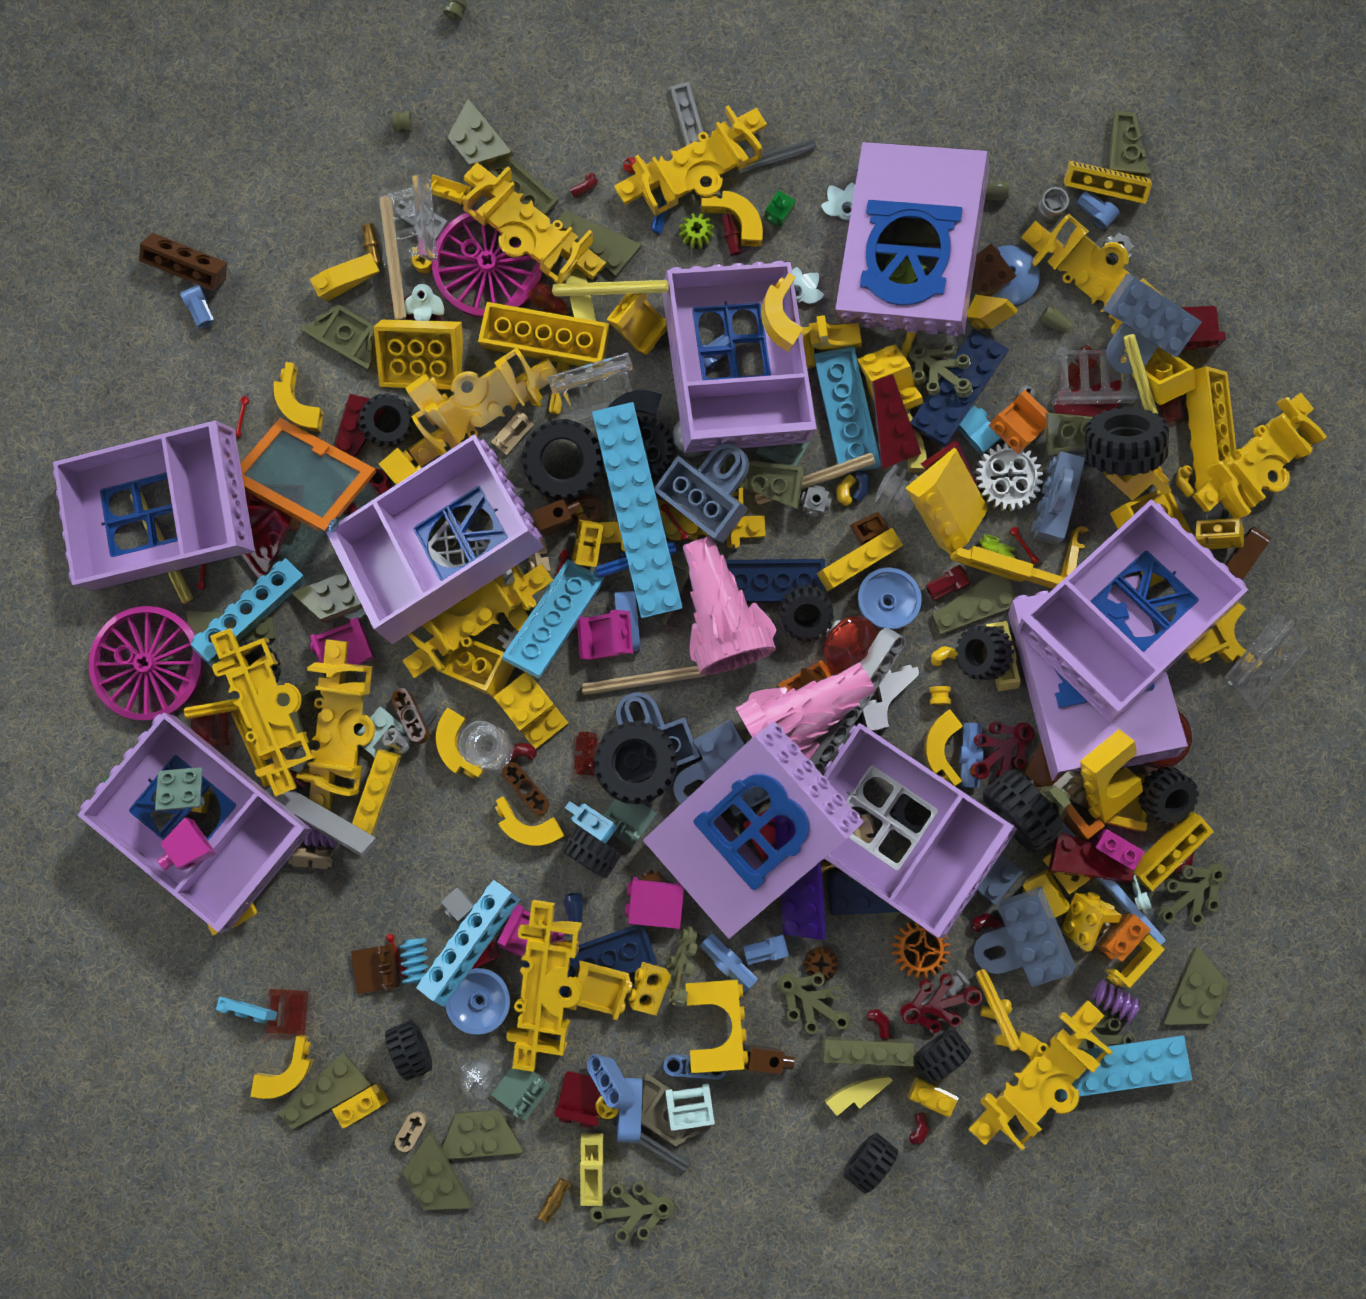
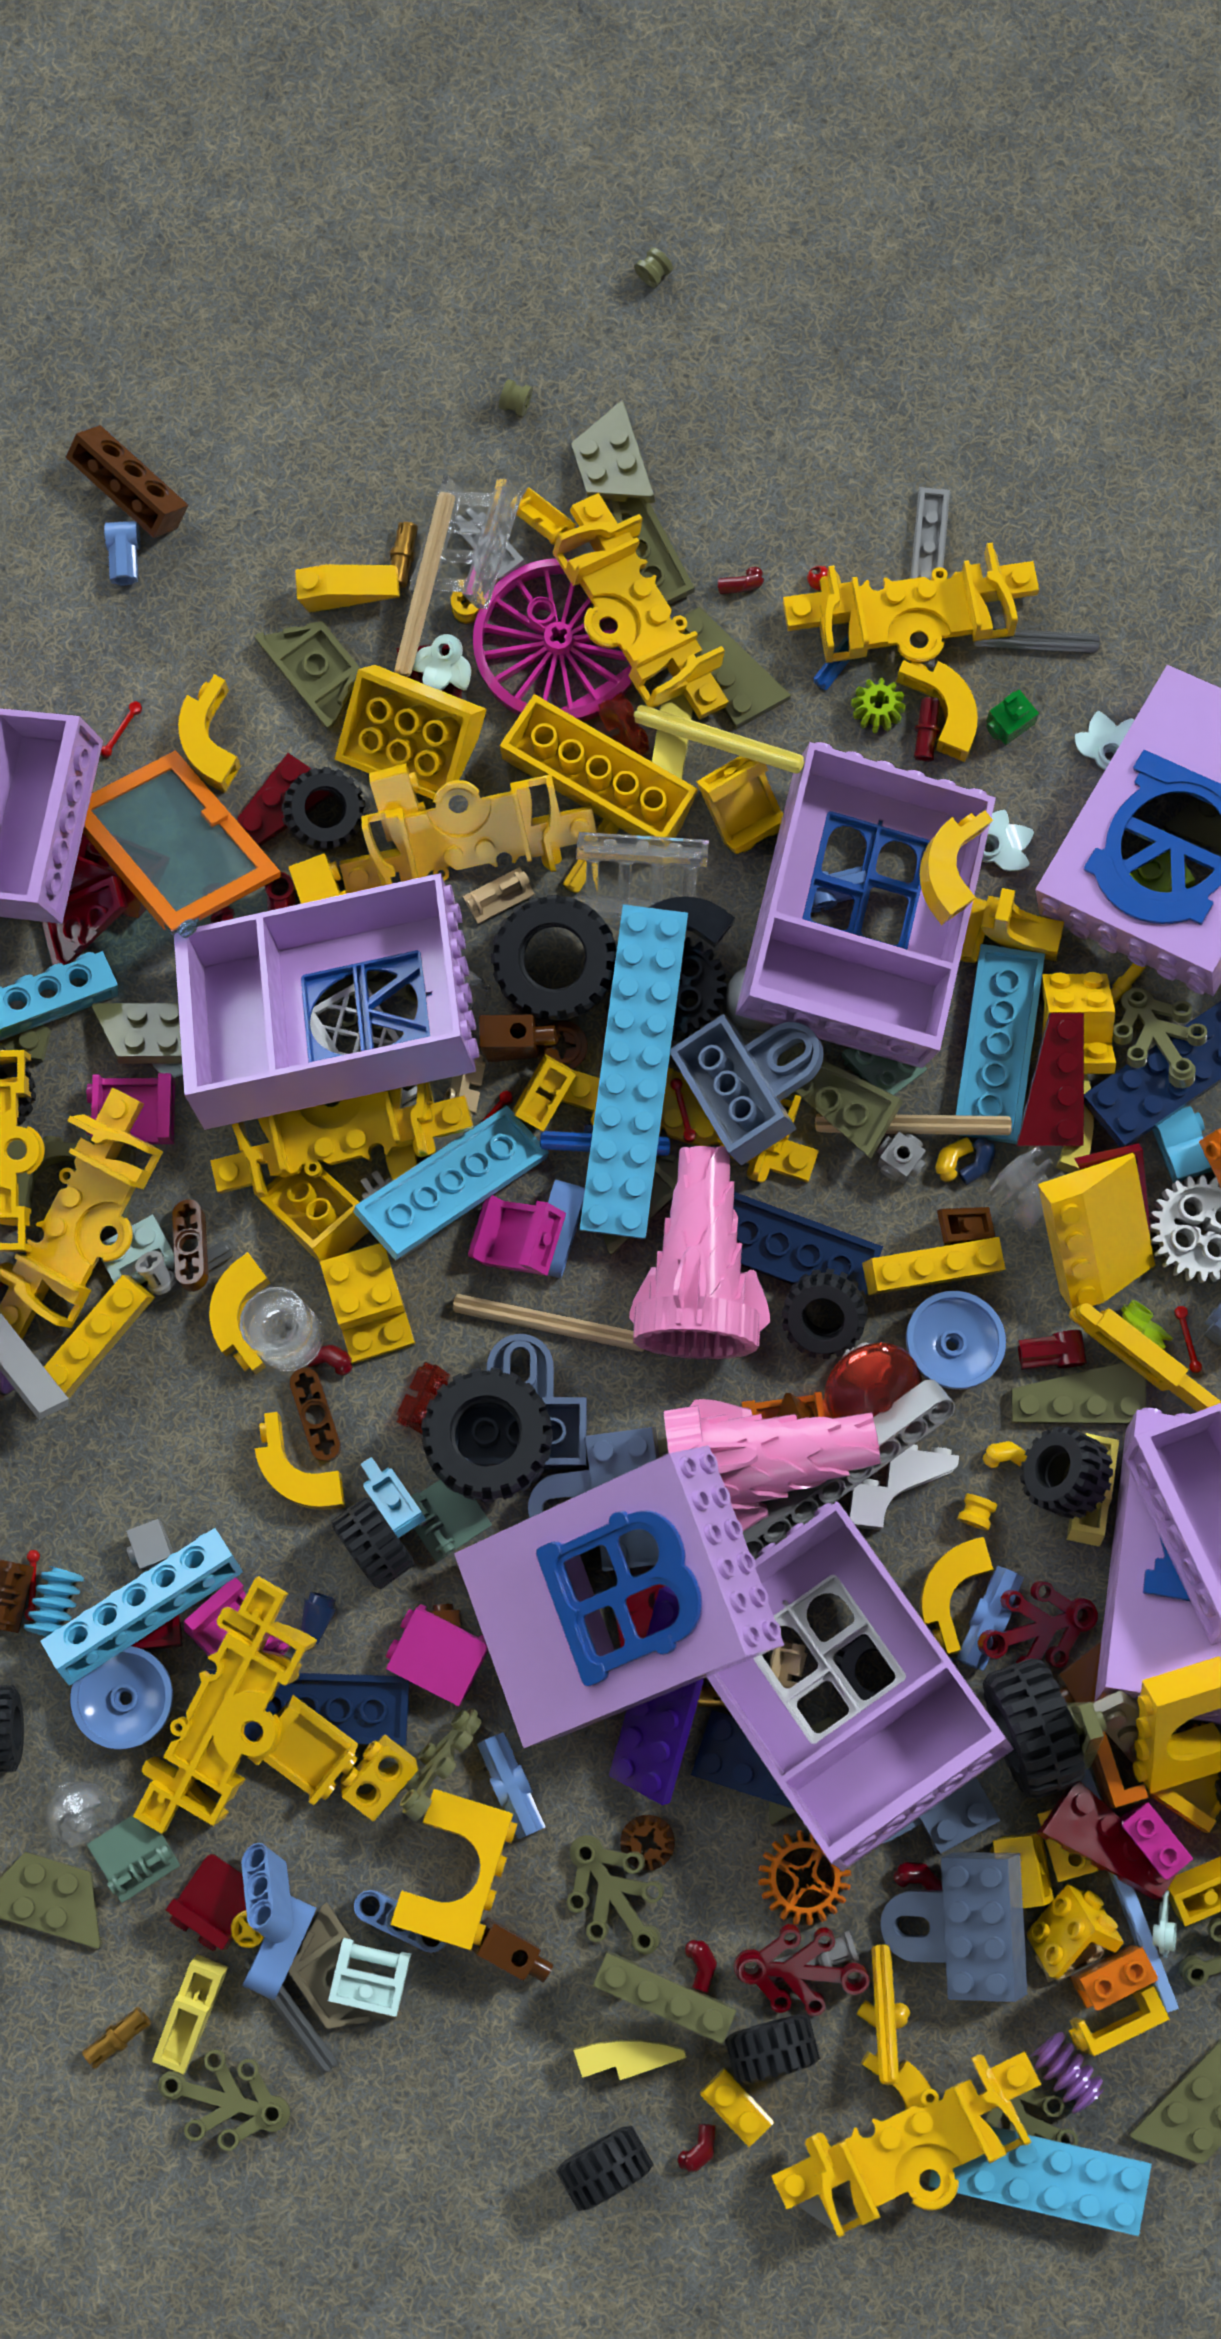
camera: 20 degrees right, 5 degrees down
(771, 948) = (582, 1790): medium blue piece -> none

